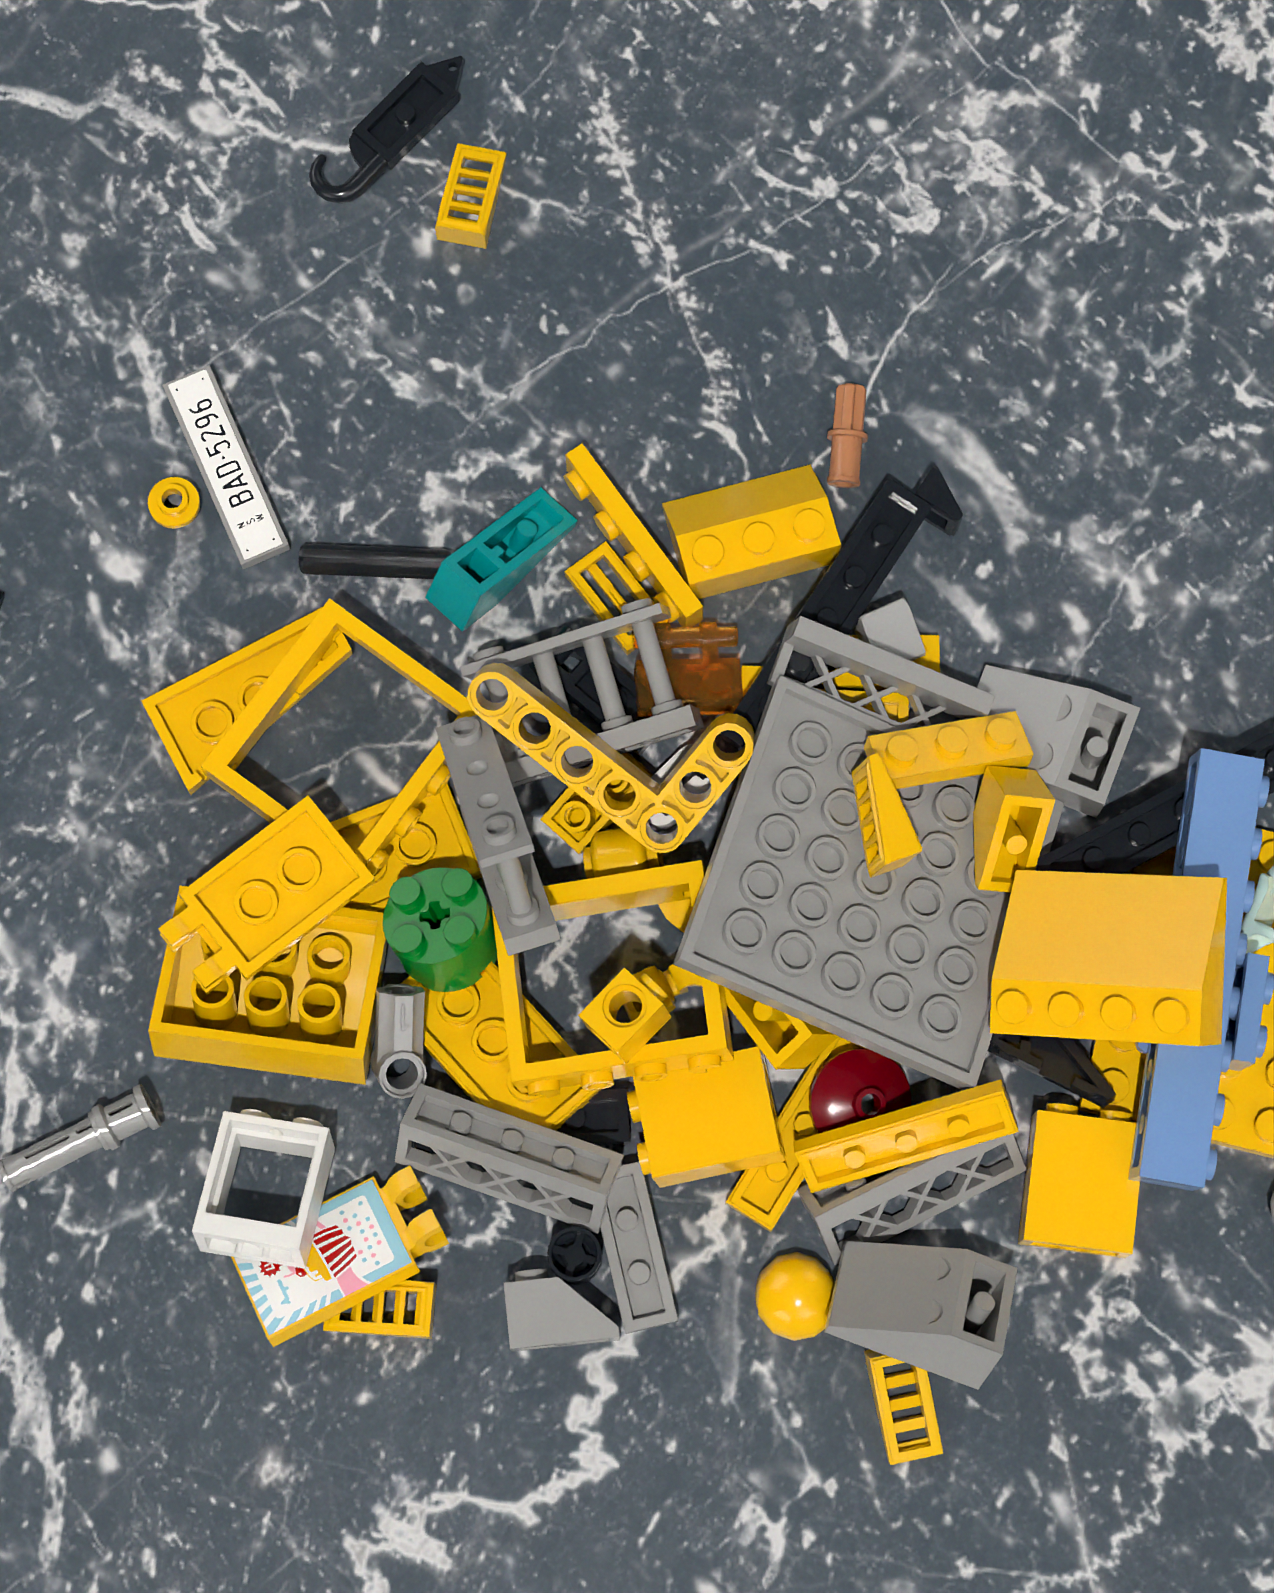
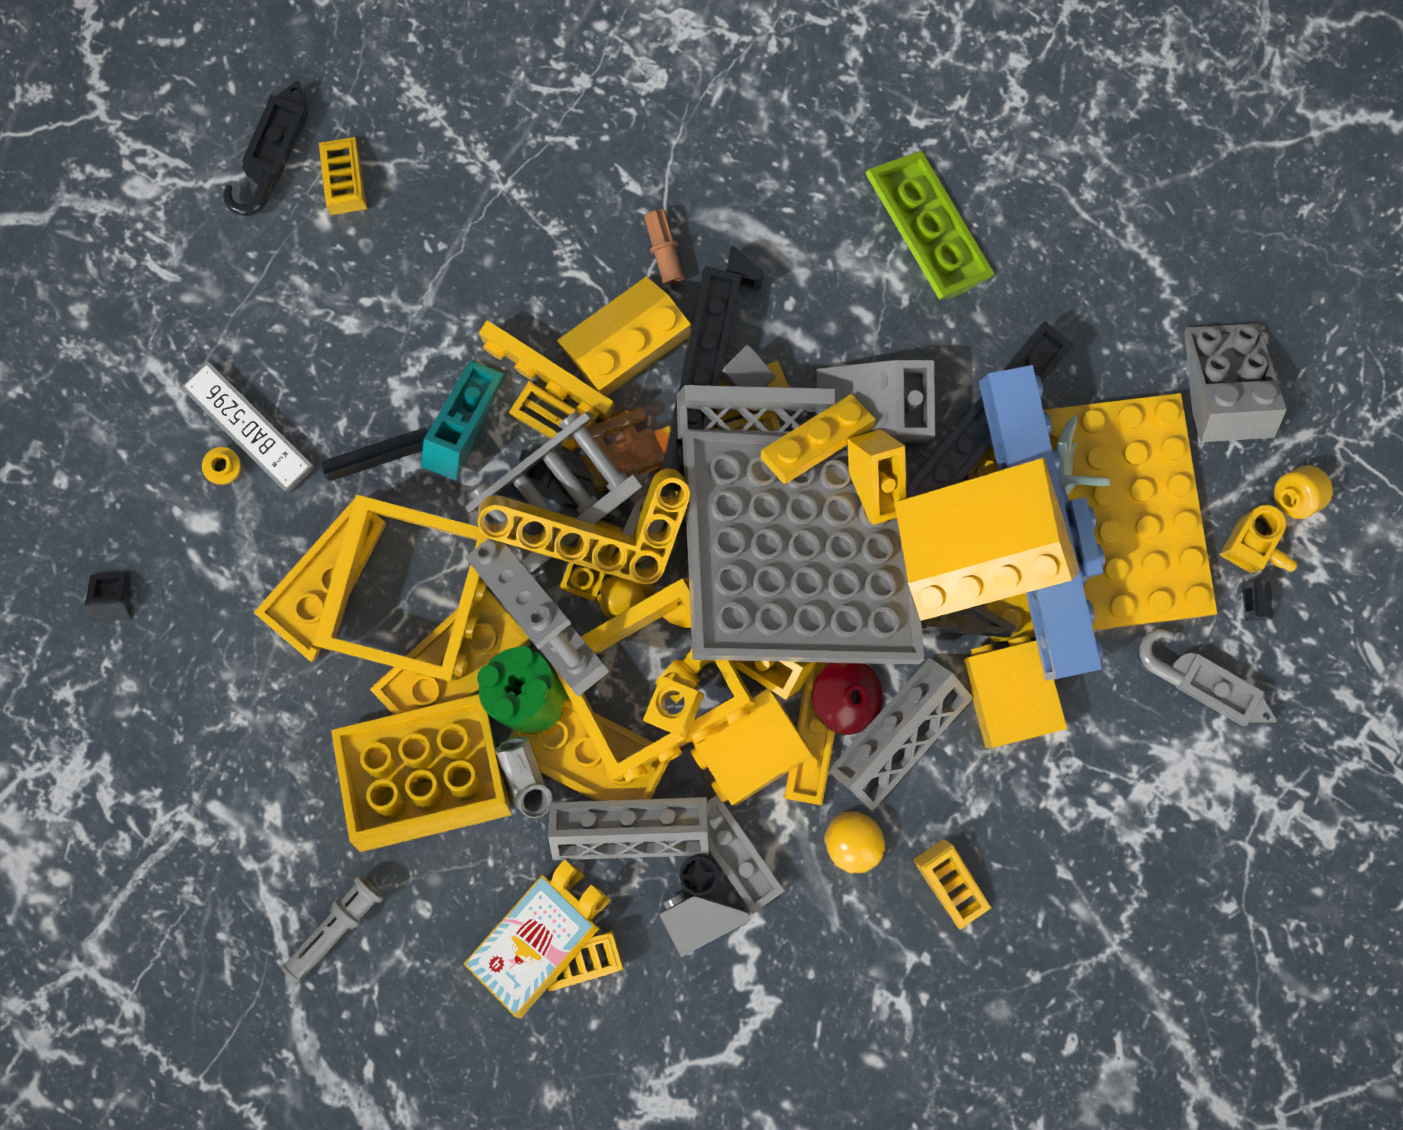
camera: 30 degrees left, 5 degrees up
(254, 1238) = (480, 953): white window -> none
(268, 894) = (395, 716): yellow tile -> none
(883, 821) = (794, 503): yellow slope -> none
(905, 1136) = (889, 709): yellow tile -> none
(924, 1306) = (945, 819): light grey slope -> none
(1208, 536) = (930, 225): none -> lime slope

